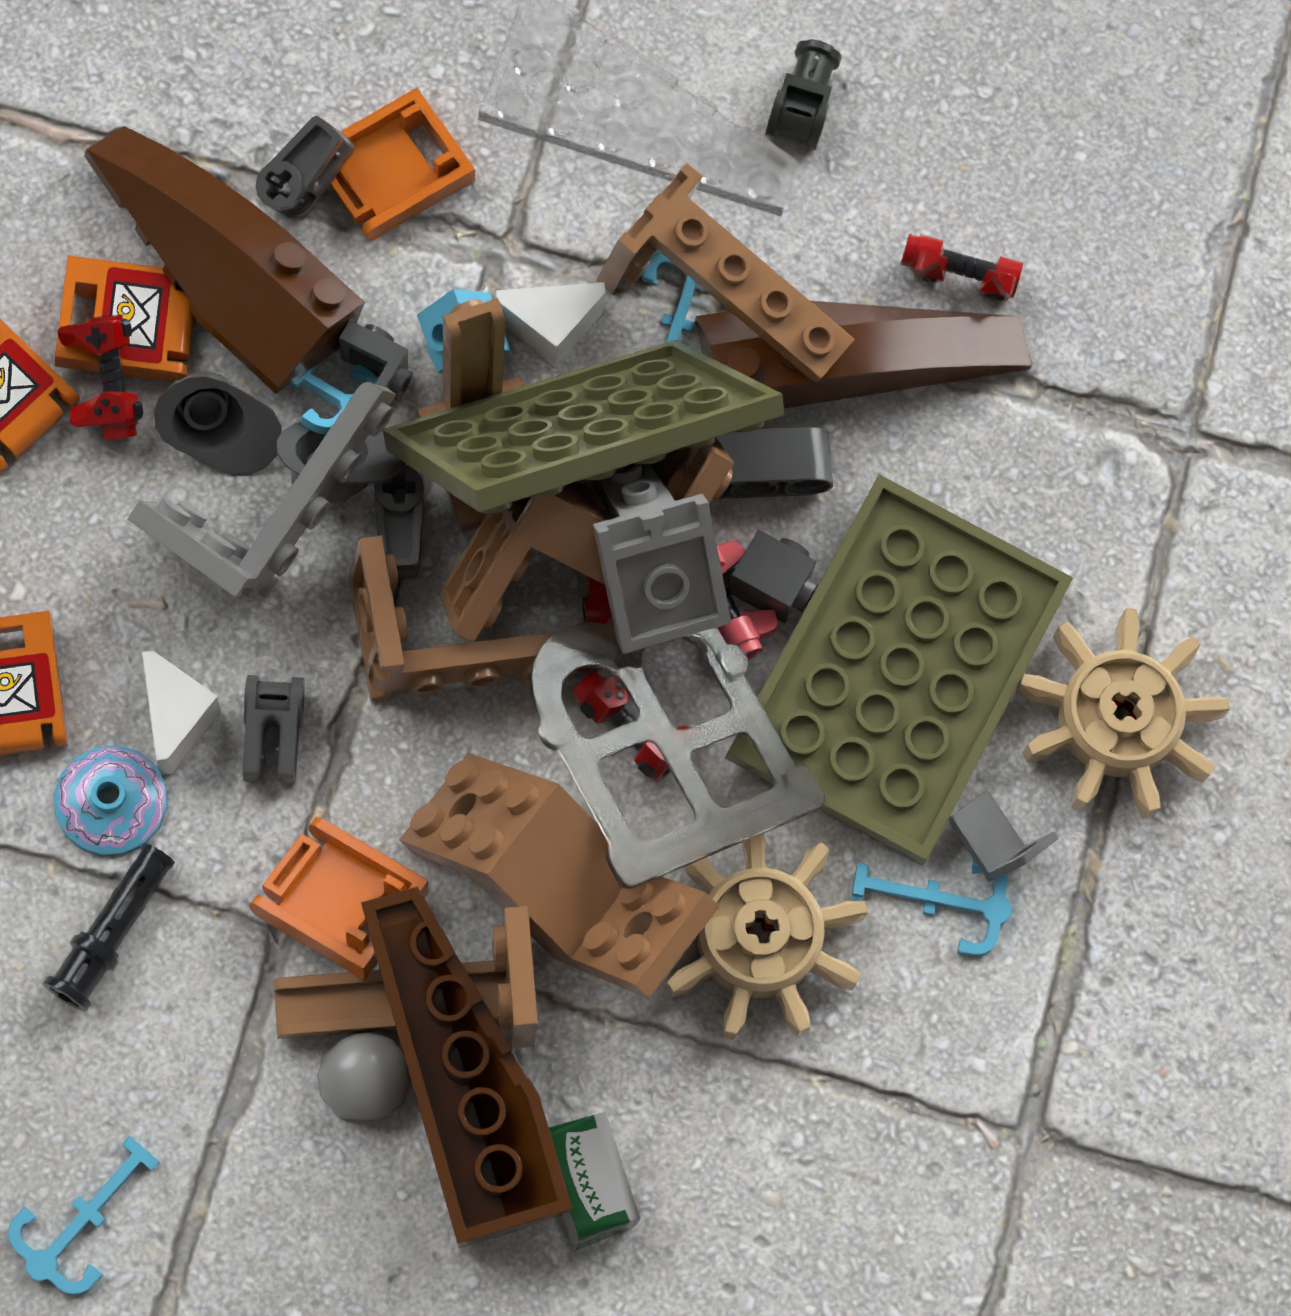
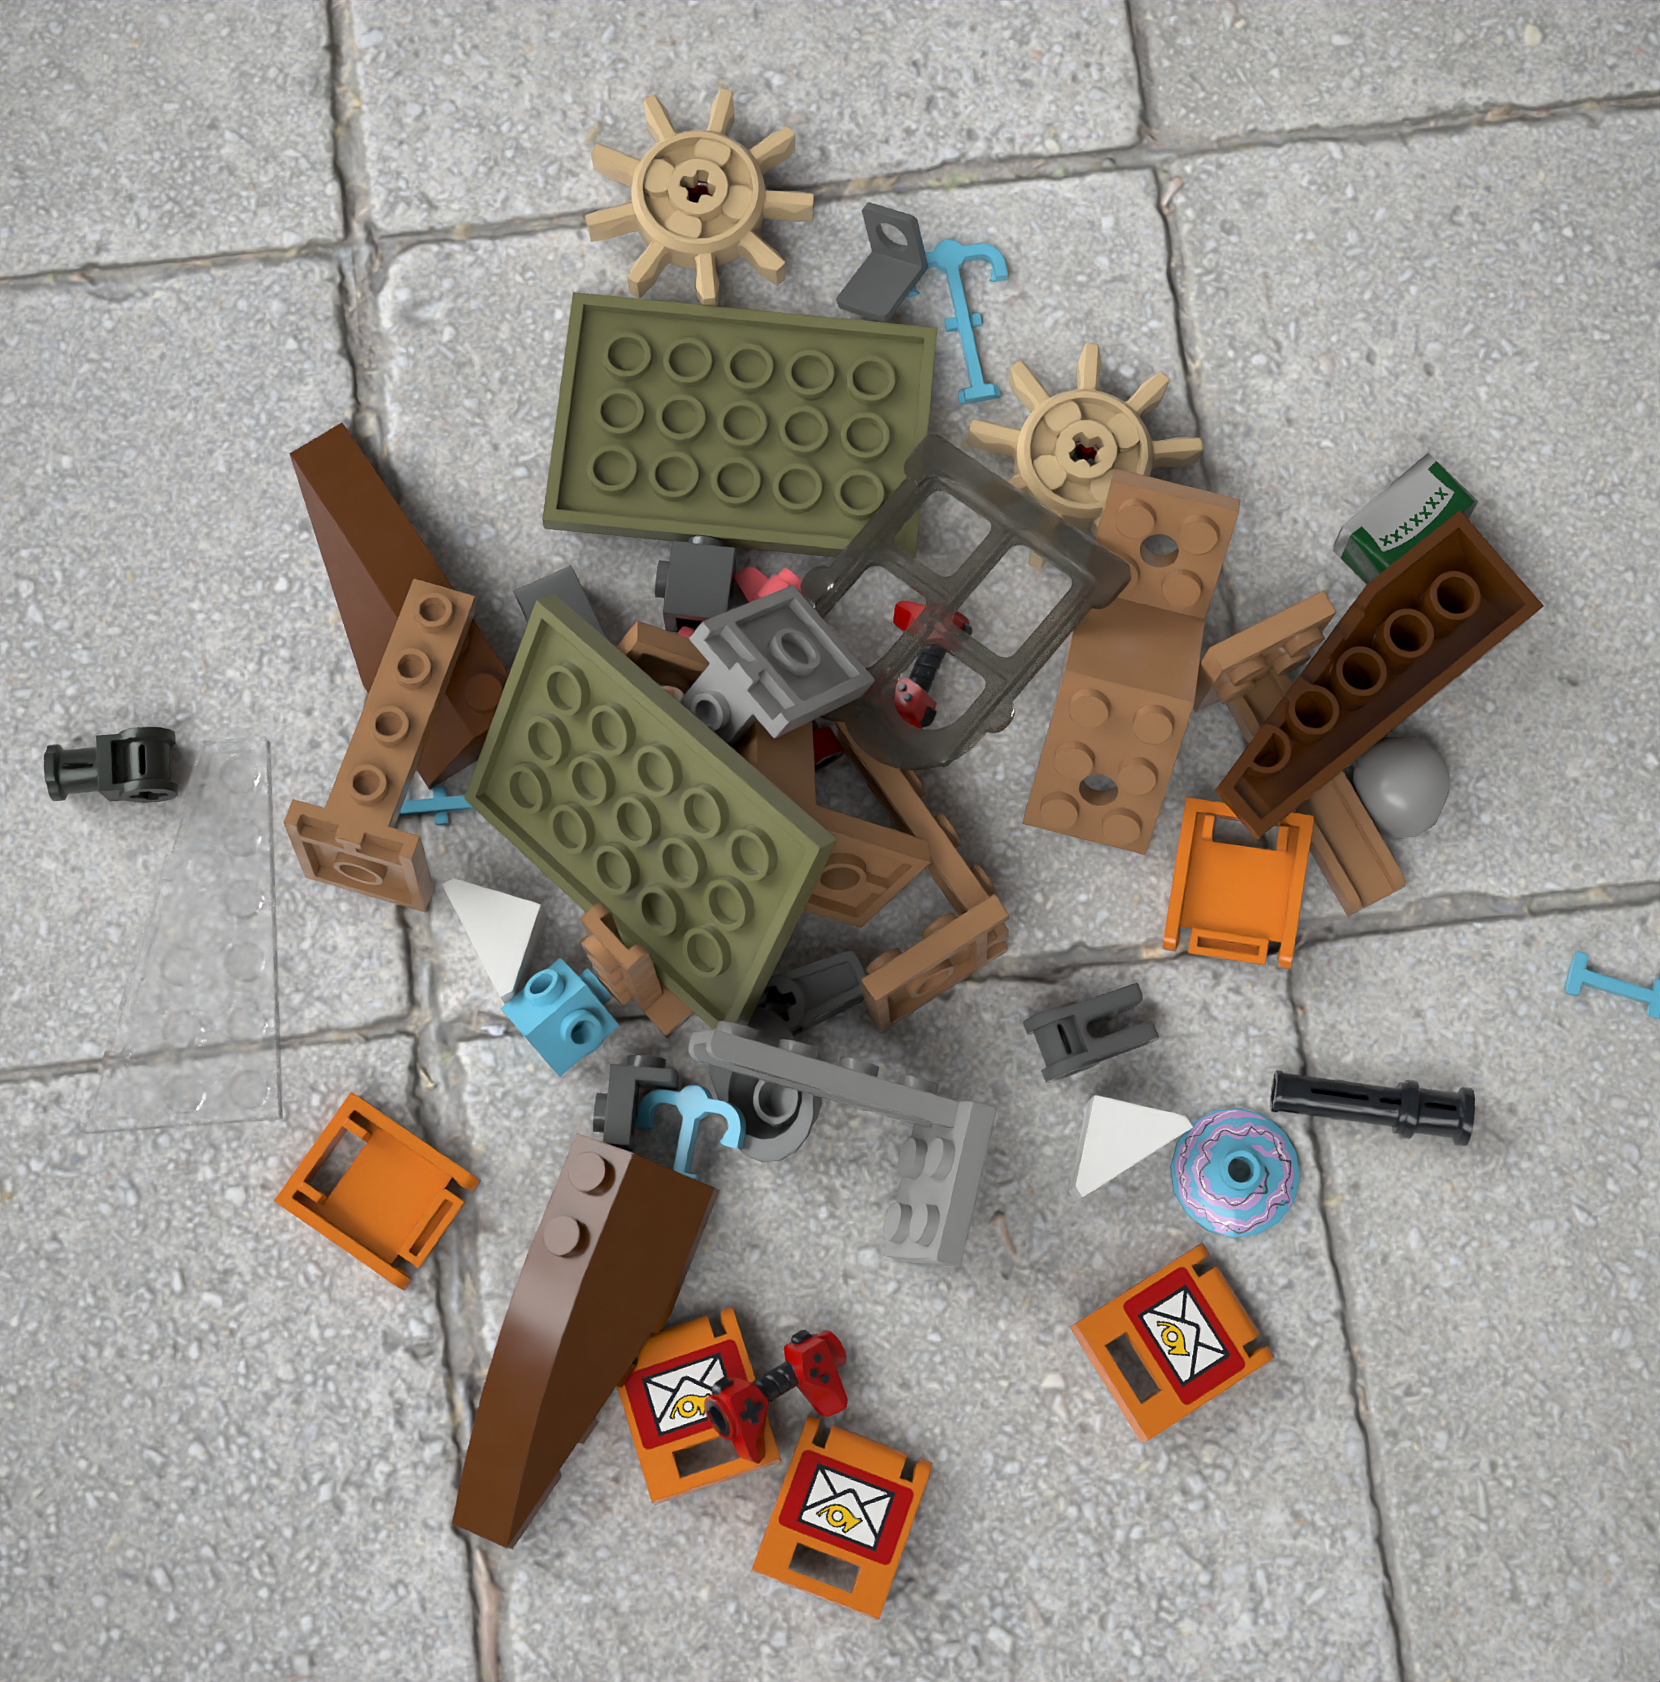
camera: 105 degrees left, 5 degrees up
(218, 424) = (779, 1243): dark grey piece -> none
(307, 164) = (428, 1278): dark grey piece -> none
(931, 262) = (264, 560): red piece -> none

